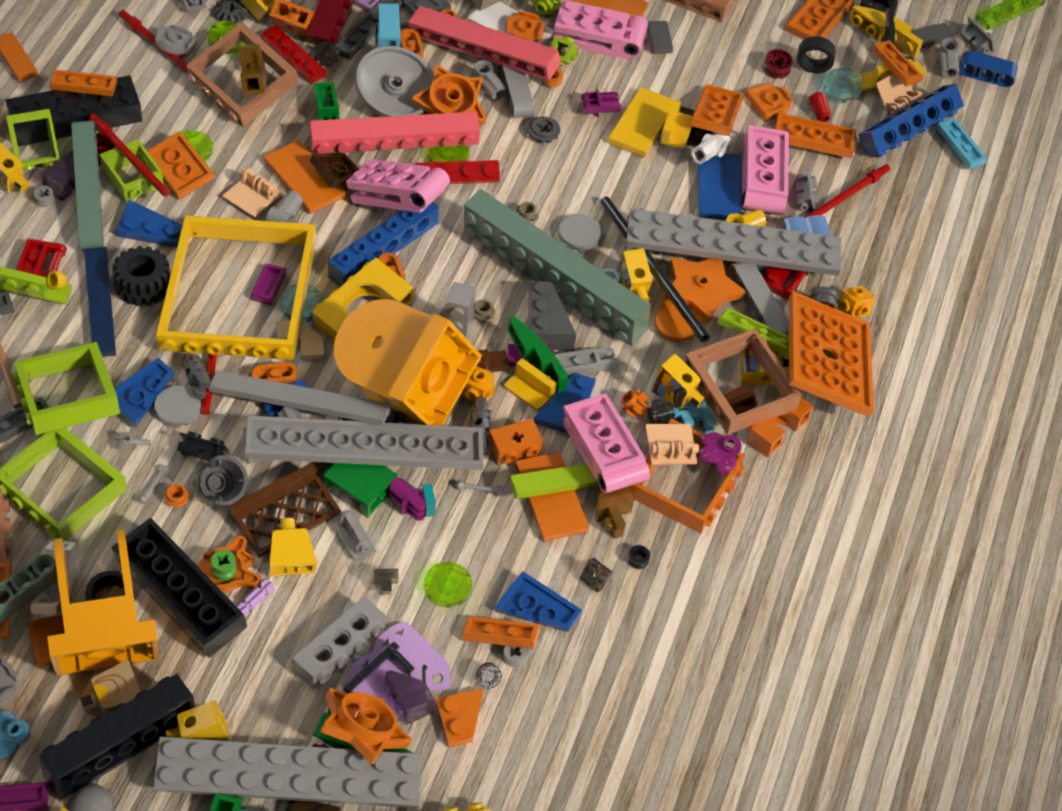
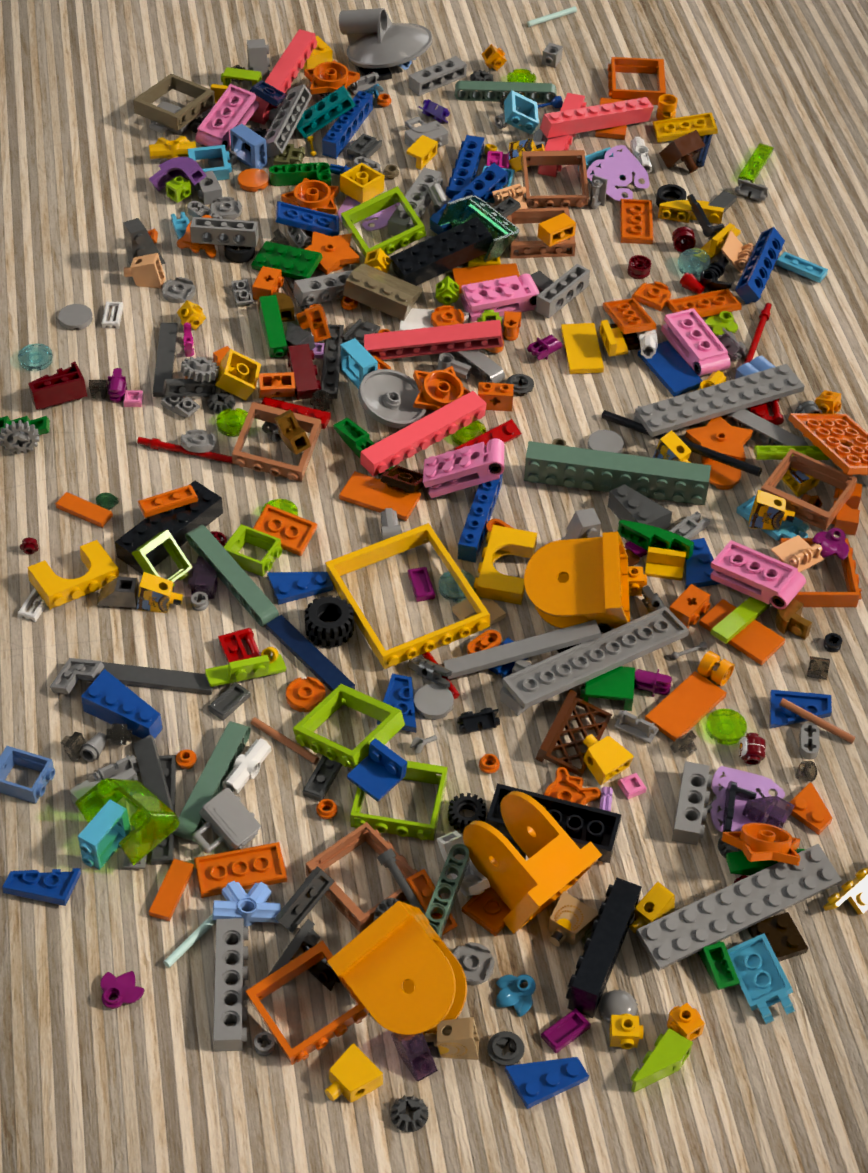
camera: 25 degrees left, 5 degrees down
(42, 58) = (106, 500): none -> clear green tile
(48, 446) = (378, 771): none -> blue bracket
(63, 334) = (305, 694): none -> orange tile
(106, 131) = (215, 529): red bar -> none
(106, 521) = (463, 803): none -> black tyre
(162, 470) = (461, 752): light grey hinge -> none
(221, 481) = (521, 734): dark grey hat -> none
(225, 571) = (566, 794): bright green wheel -> none
(252, 193) = (354, 525): light nougat hinge -> none
(298, 593) = (632, 786): none -> bright pink tile
(424, 541) = (685, 706): none -> orange tile
(428, 496) = (664, 669): teal tile -> none
(450, 621) = (752, 748): none -> dark red head
(484, 519) = (711, 663): none -> light orange wheel
(501, 632) = (793, 737): orange tile -> none
(503, 129) = (496, 395): none -> orange brick
(544, 629) = (817, 720): none -> nougat bar
(588, 63) = (511, 325): none -> orange piece
(635, 403) = (746, 538): orange gear -> none
(660, 412) = (767, 538): clear smoke gear -> none
(669, 52) = (562, 291): none -> light grey brick
(818, 44) = (666, 256): black tyre -> none
(818, 163) = (723, 320): none -> lime plate
(843, 109) = (710, 277): none -> black piece
(850, 54) = (683, 239): none -> dark red wheel
(897, 63) = (725, 229): orange tile -> none
(949, 58) = (746, 213): light grey piece -> none
(988, 68) = (777, 209): blue beam -> none

